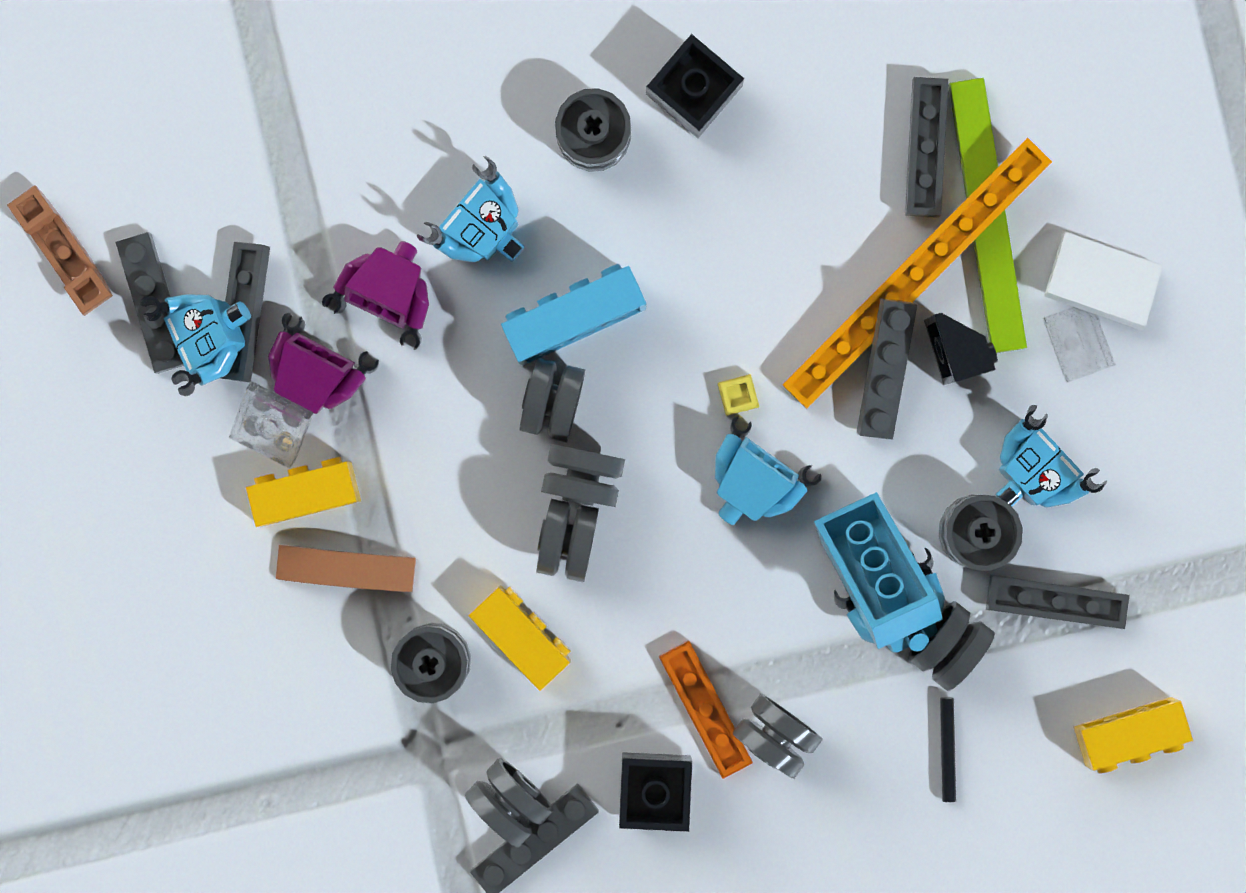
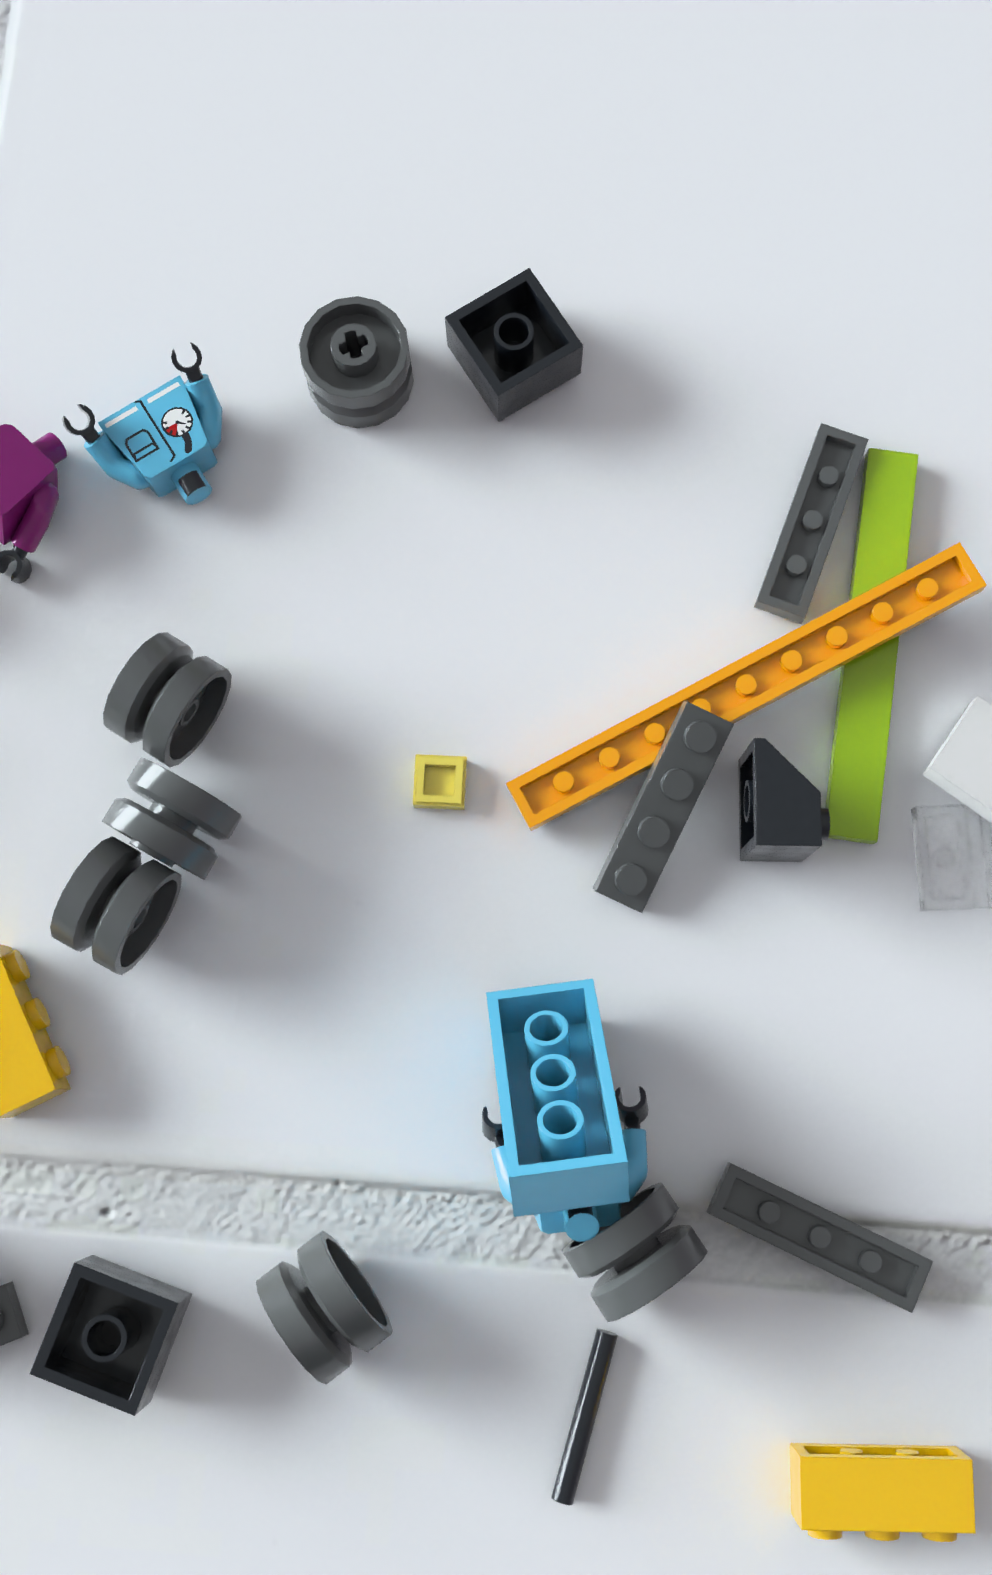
camera: 15 degrees right, 10 degrees down
(574, 315) = (240, 591): medium azure brick -> none
(705, 709) = (236, 1226): orange tile -> none
(755, 480) = (421, 907): medium azure torso -> none
(1000, 538) = (763, 1097): dark grey wheel -> none
(1040, 468) = (848, 1023): medium azure torso -> none

